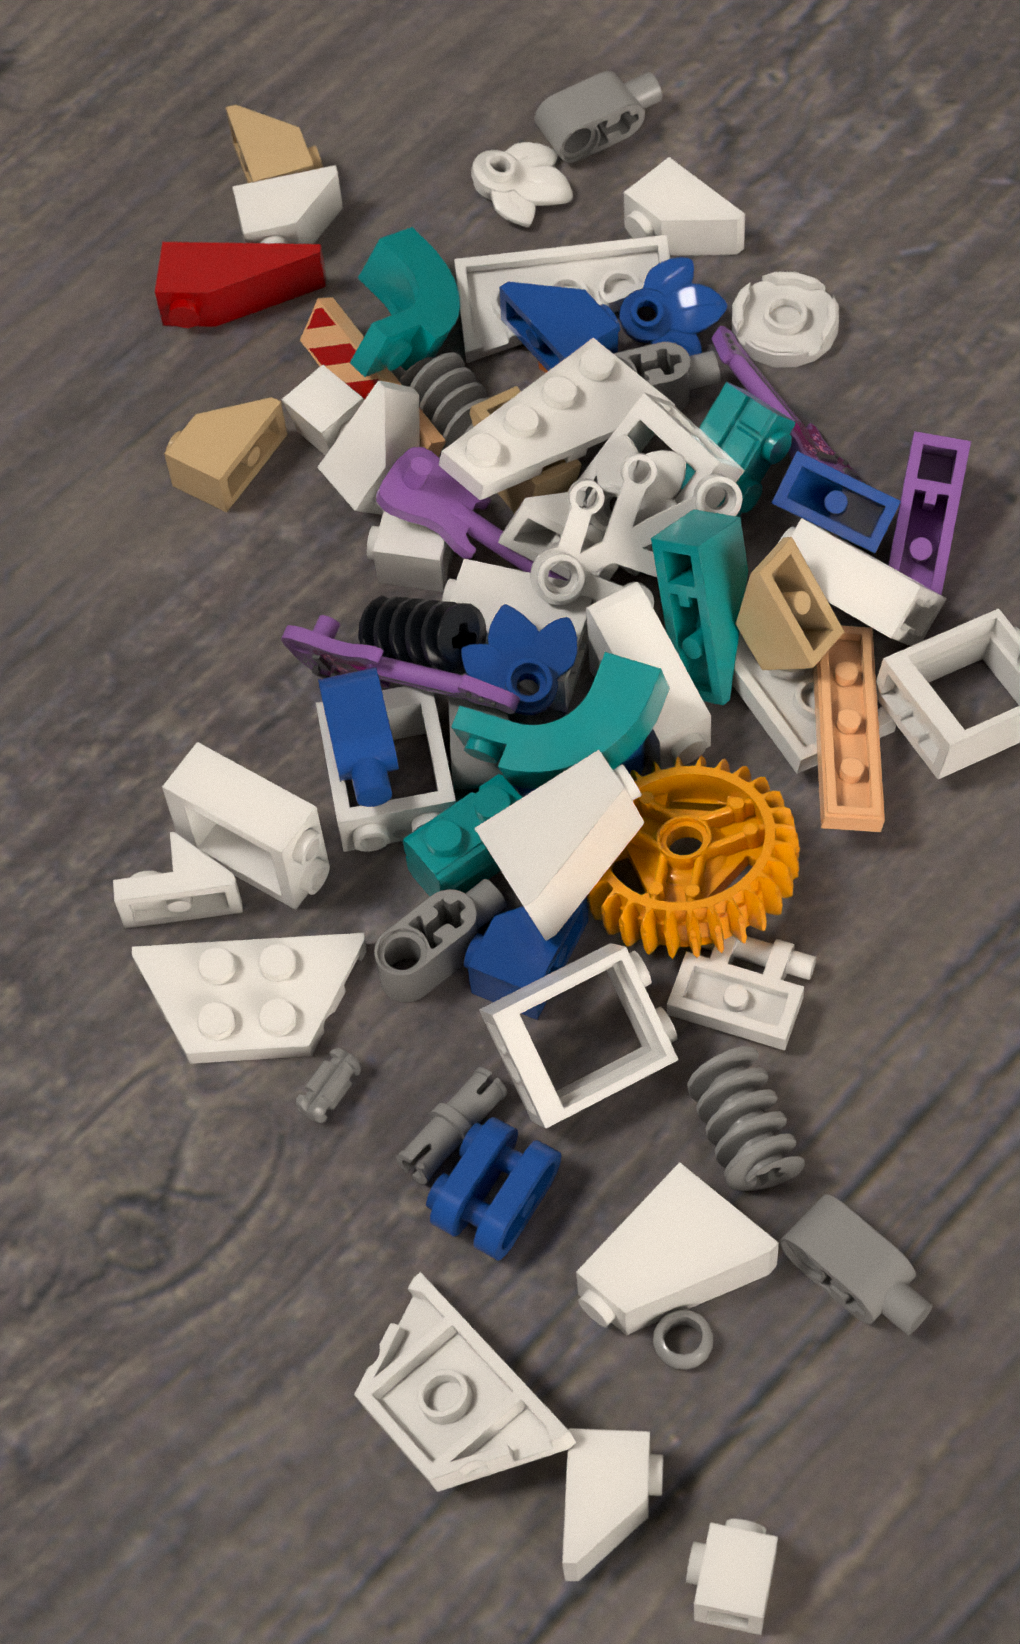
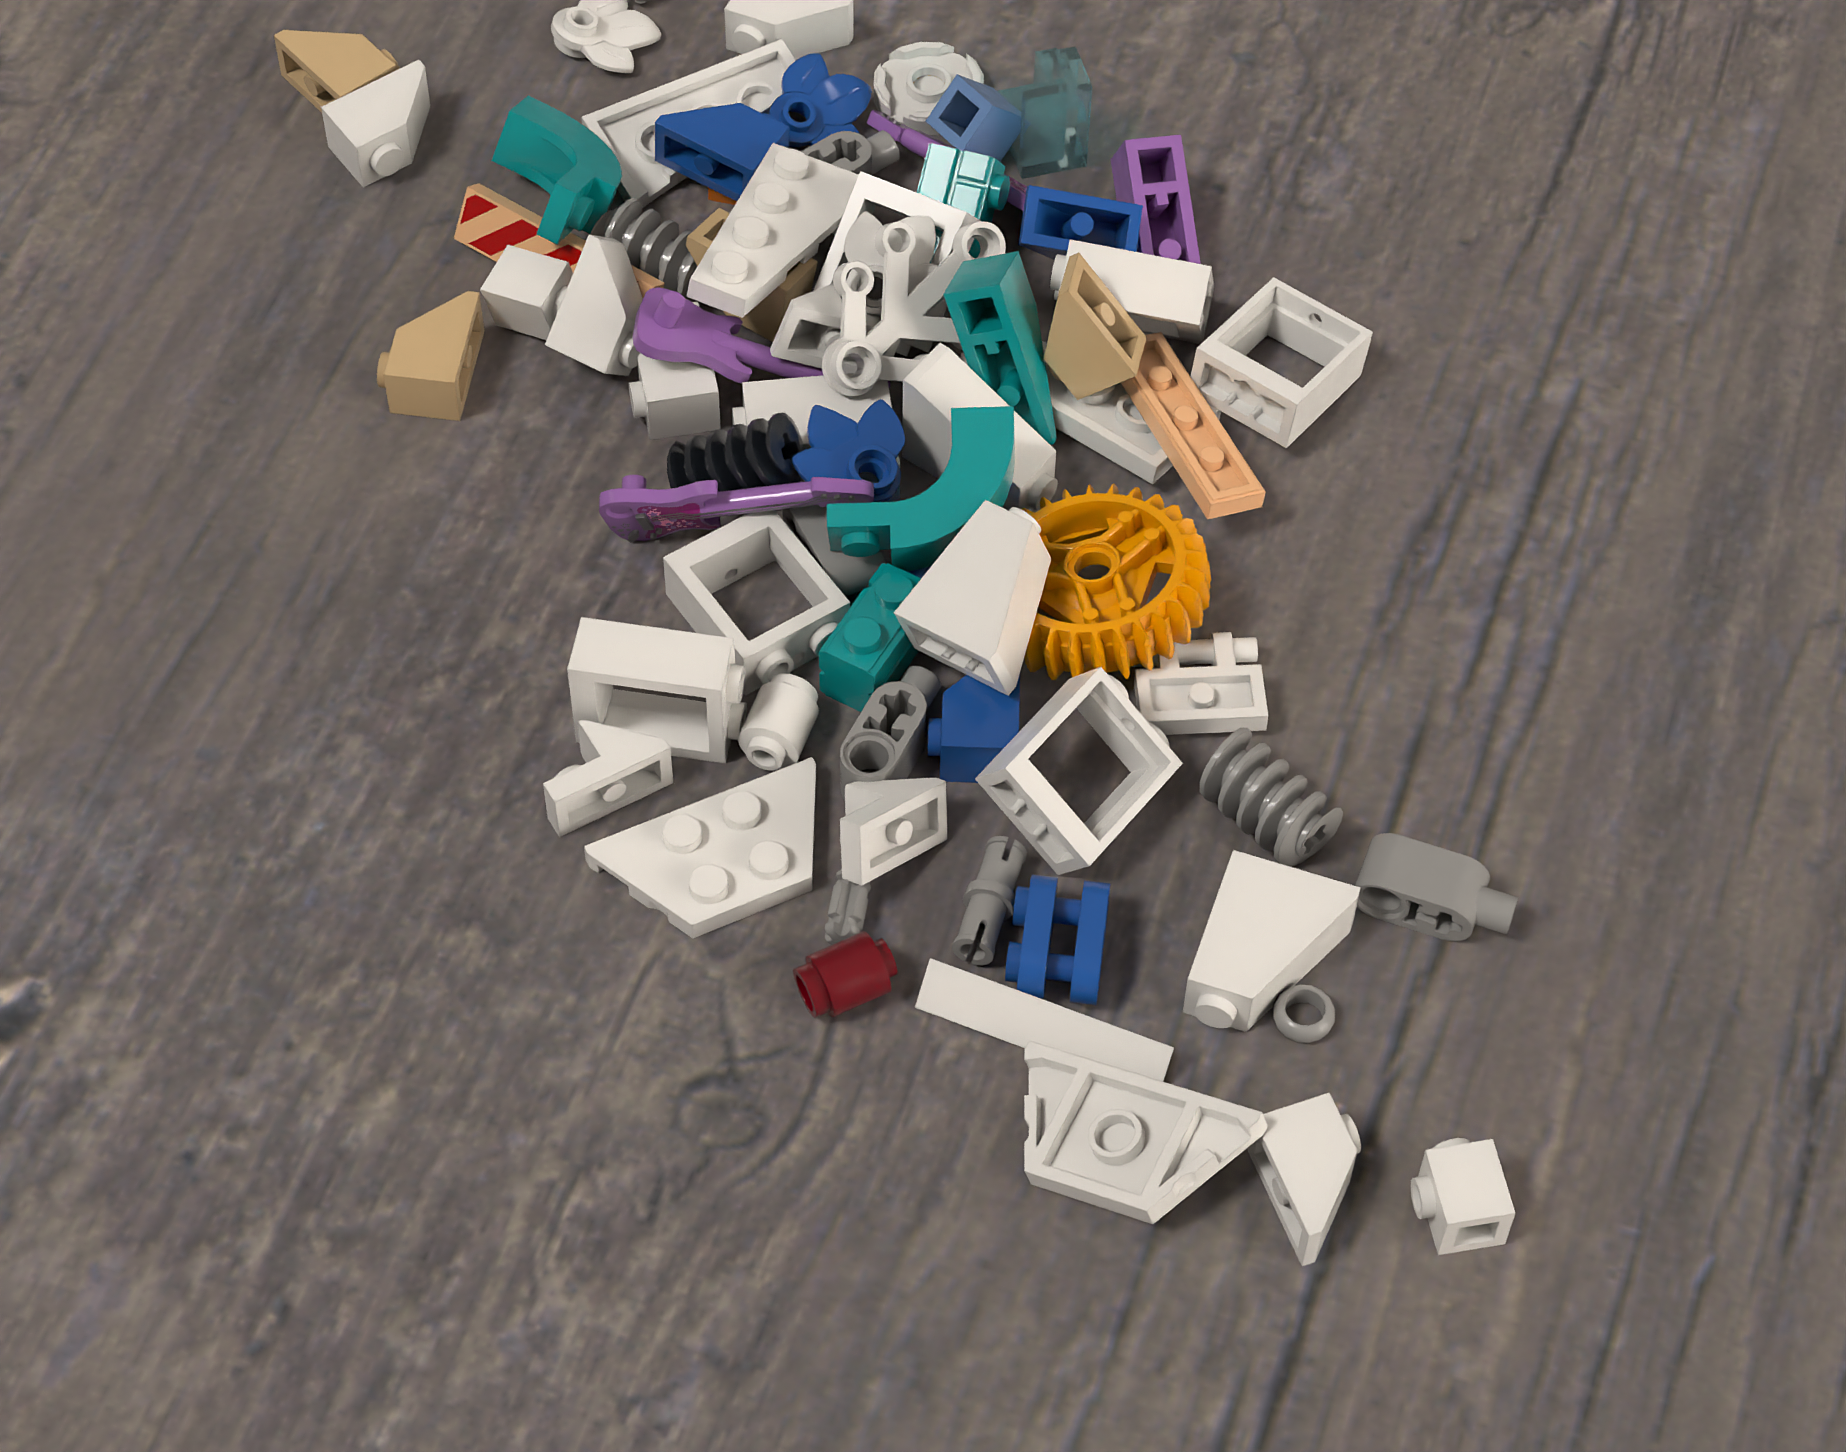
camera: 30 degrees left, 5 degrees down
(226, 281) = (355, 200): red slope -> none
(290, 1150) = (845, 975): none -> dark red brick
(349, 891) = (779, 722): none -> white brick
(360, 733) = (731, 564): blue piece -> none
(392, 1025) = (890, 824): none -> white slope
(443, 1265) = (1025, 1018): none -> white sticker
(802, 366) = (976, 118): none -> medium blue brick
(869, 383) = (1052, 115): none -> clear light blue panel

